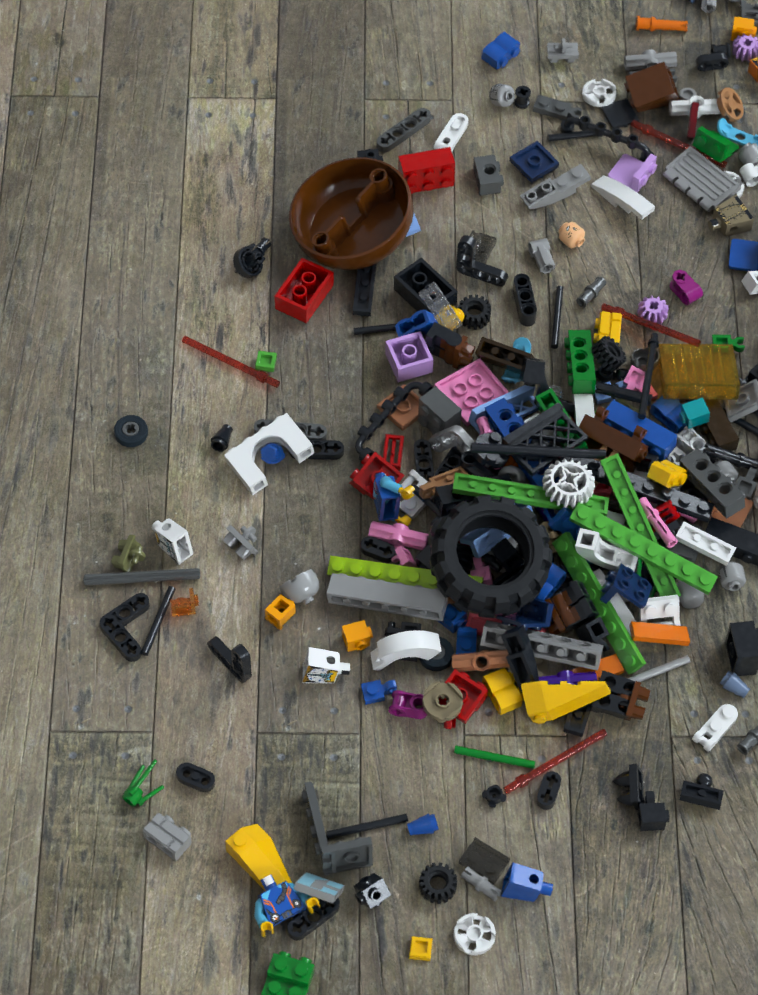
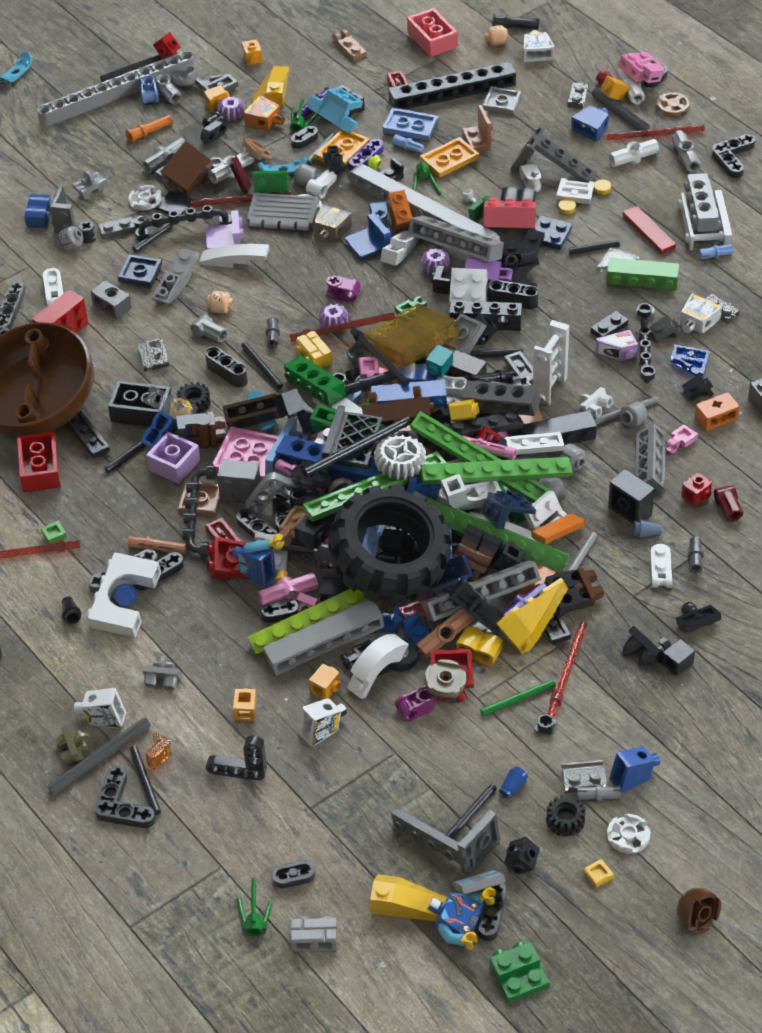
camera: 35 degrees left, 10 degrees down
(301, 588) = (247, 674): light grey cylinder -> none
(328, 420) = (157, 545): none -> nougat pin
(375, 691) = (378, 713): blue plate -> none
(472, 268) = (159, 365): black beam -> none
(512, 63) = (61, 212): none -> dark grey bracket
(552, 791) = (586, 691): black beam -> none
(608, 353) = (332, 362): black tyre -> none

